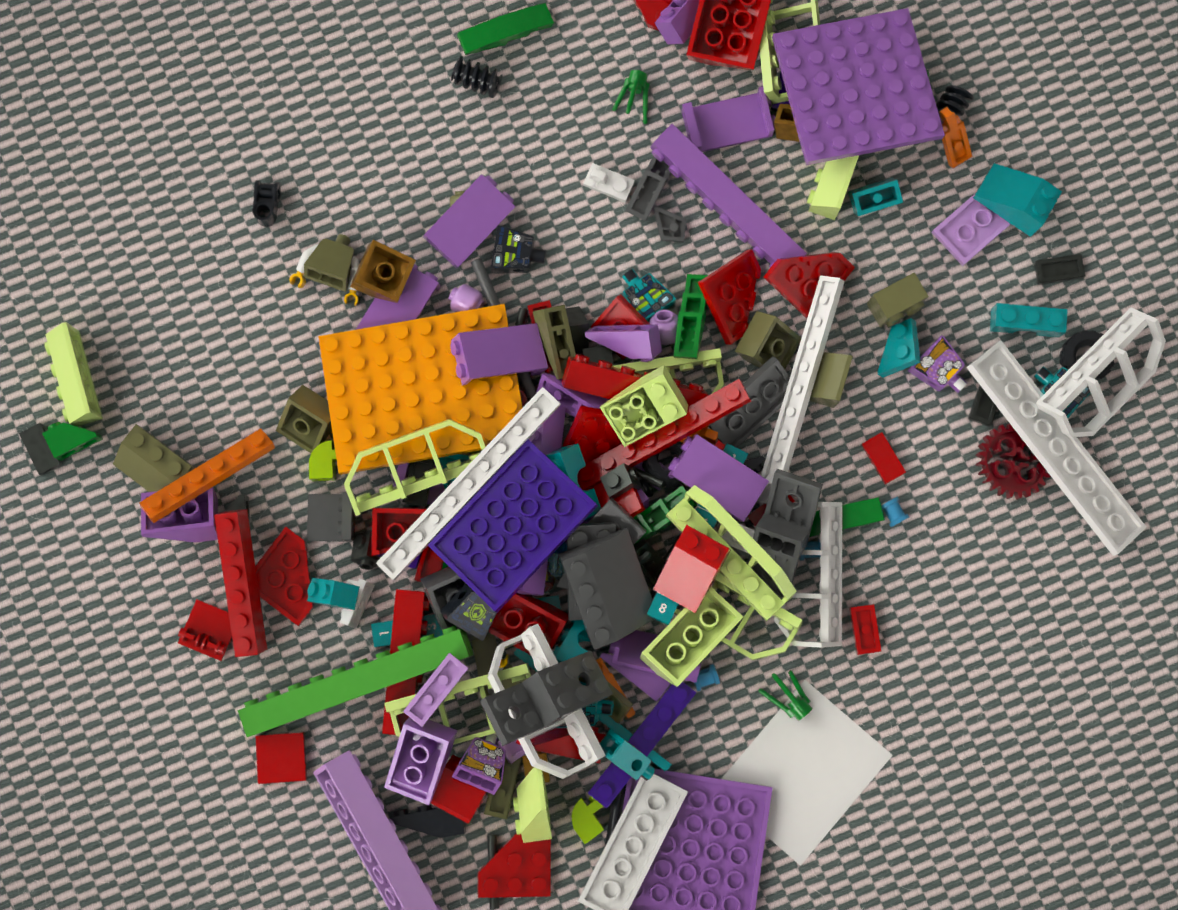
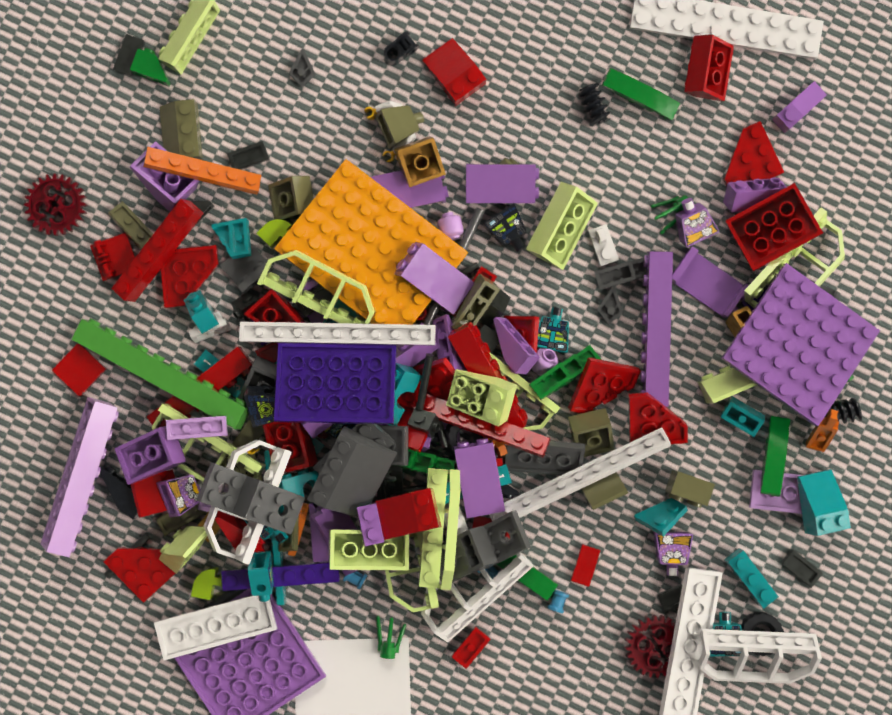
camera: 40 degrees right, 5 degrees up
(131, 632) = (70, 213): none -> dark red gear
(194, 588) = (130, 224): none -> olive tile
(201, 305) = (302, 70): none -> dark grey piece
(233, 424) = (248, 156): none -> pearl dark grey tile
(294, 502) = (235, 237): none -> teal wing
(332, 172) = (454, 71): none -> red slope
(557, 202) = (562, 225): none -> yellowish green slope
(585, 446) = (424, 381): none -> pearl dark grey bar
(663, 84) = (694, 223): none -> torso
(670, 613) = (370, 525): none -> medium lavender plate
(937, 200) = (775, 456): none -> green slope

